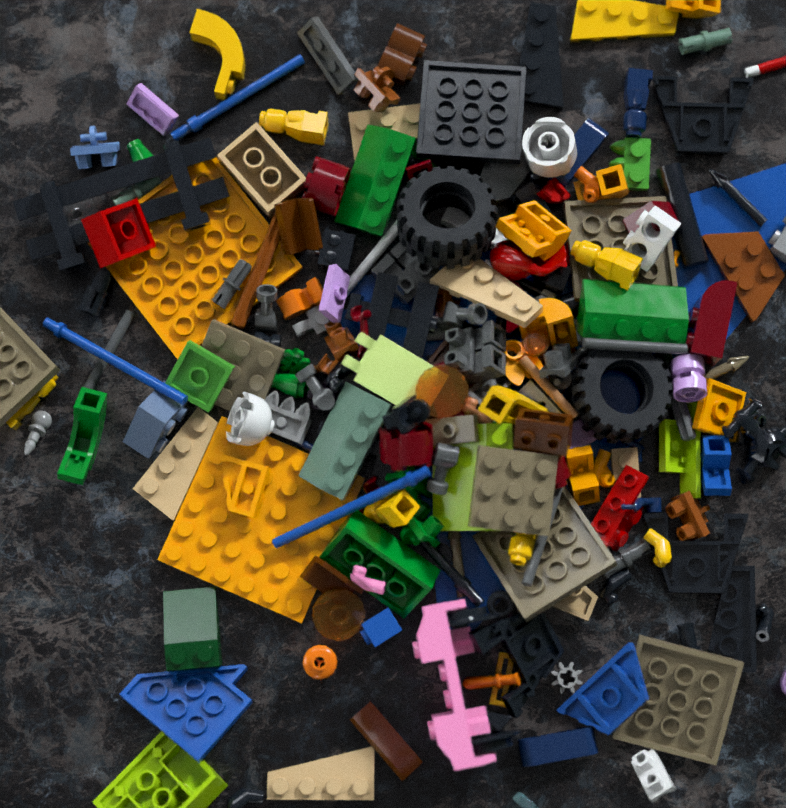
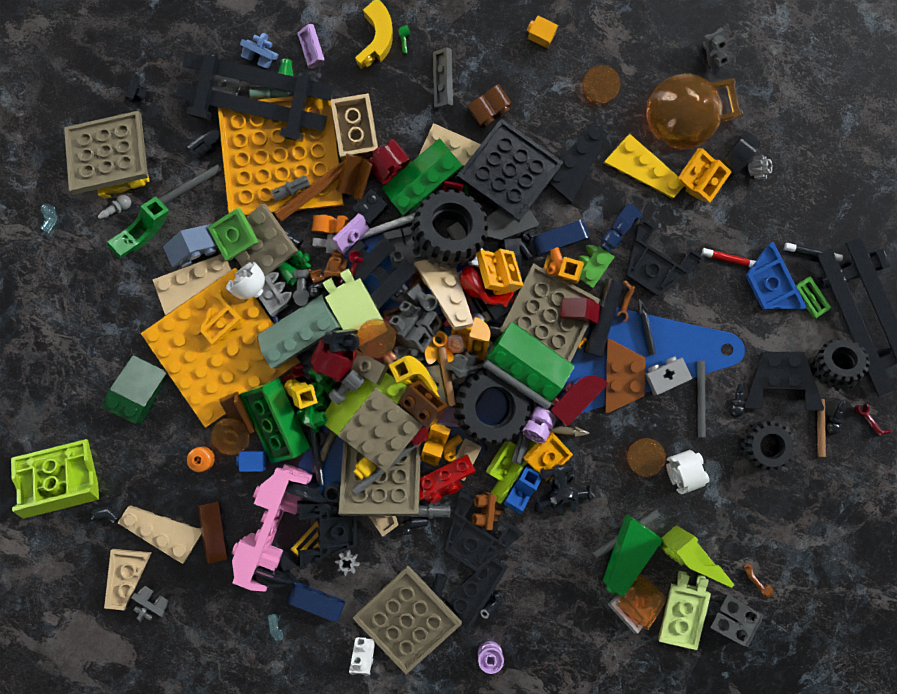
camera: 30 degrees right, 5 degrees up
(61, 330) = (169, 153): blue bar -> none
(118, 232) = (238, 112): red slope -> none
(190, 704) = (104, 437): blue wing -> none
(195, 123) = (332, 71): blue bar -> none
(249, 31) = (404, 32): none -> green hand
(266, 317) = (300, 221): dark grey leg -> none
(298, 124) = (396, 111): yellow piece -> none
(366, 583) = (257, 427): bright pink arm -> none
(379, 84) = (461, 115): dark orange hips -> none
(410, 479) = (321, 382): blue bar -> none
(498, 680) = (302, 538): orange piece -> none
(545, 160) = (535, 226): white brick -> none
(554, 192) = (530, 253): red tile -> none
(610, 262) = (535, 321): yellow piece -> none
(610, 693) = (366, 591): blue wing -> none
(651, 504) = (468, 488): dark blue piece -> none
(653, 240) = (570, 321): white brick -> none
(662, 548) = (457, 519): yellow arm -> none
(695, 181) = (626, 300): none -> dark orange piece
(705, 41) = (689, 215): sand green pin -> none

